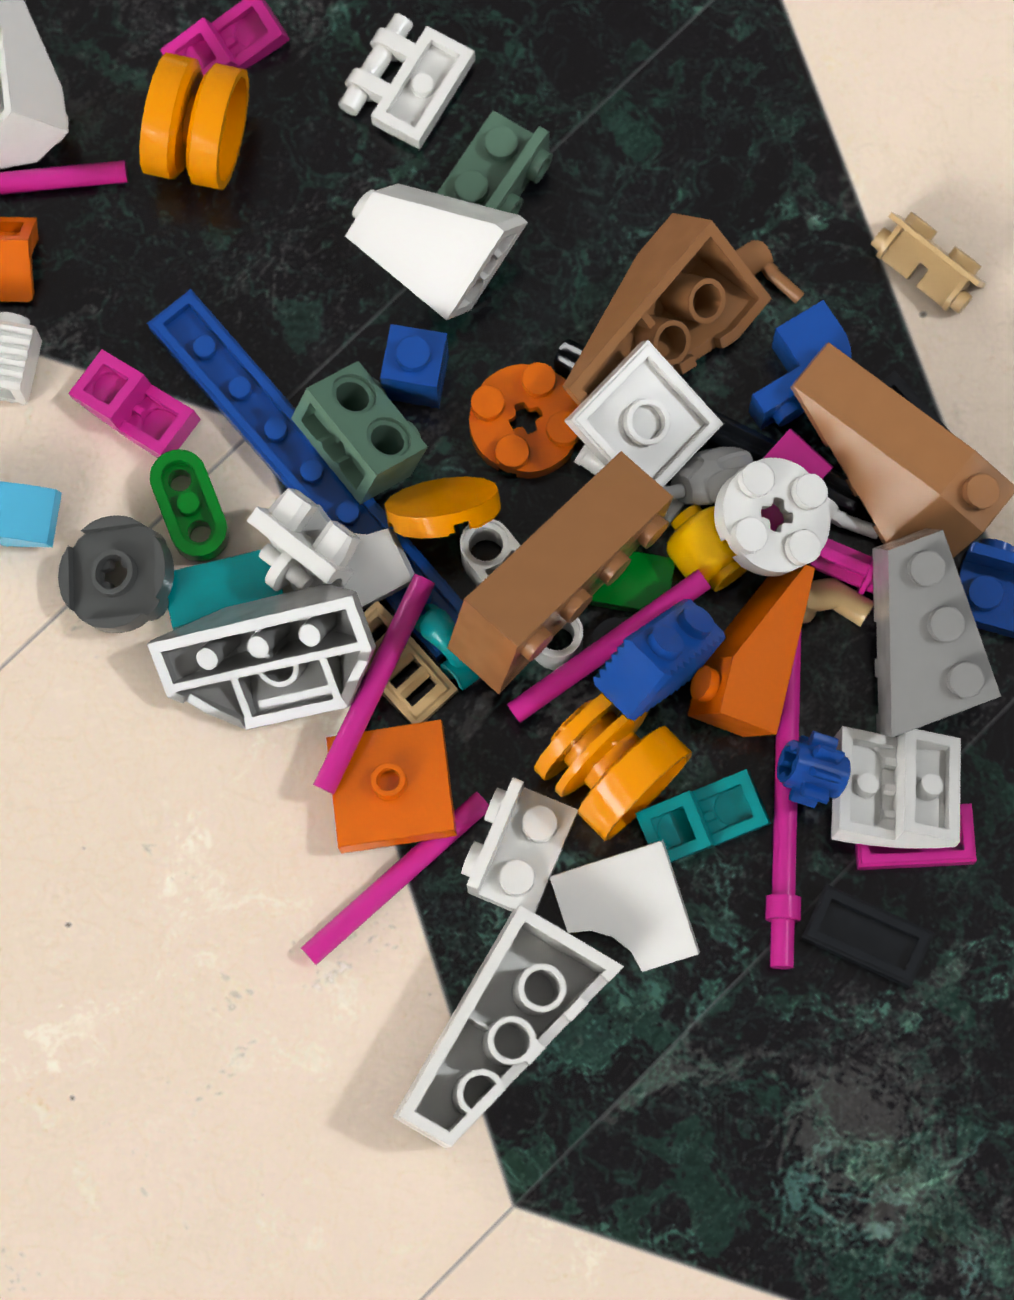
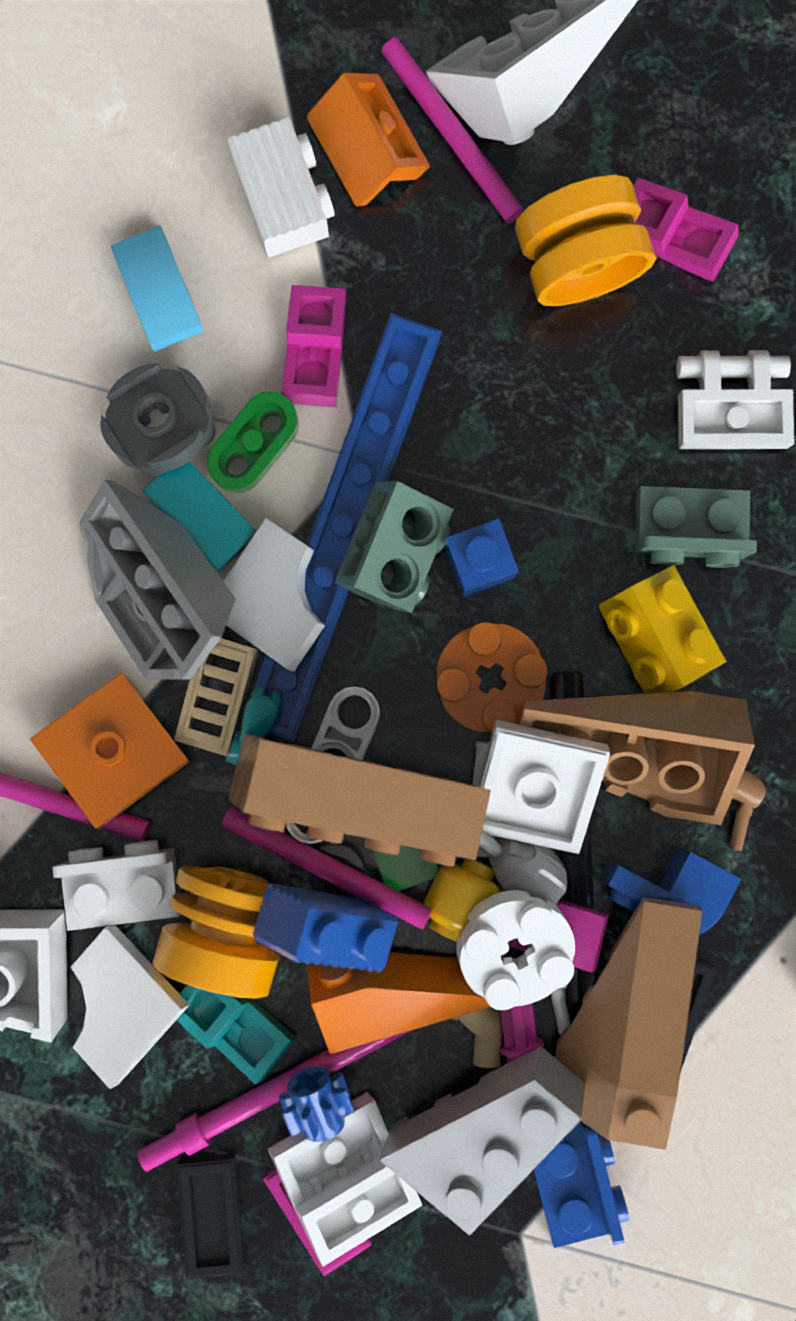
camera: 55 degrees right, 10 degrees up
(324, 557) = (255, 557): white hips -> none
(374, 684) = (180, 689): dark pink bar -> none
(434, 243) = (597, 511): white slope -> none
(439, 504) = (366, 655): light orange tile -> none
(572, 253) = (661, 633): none -> yellow bracket

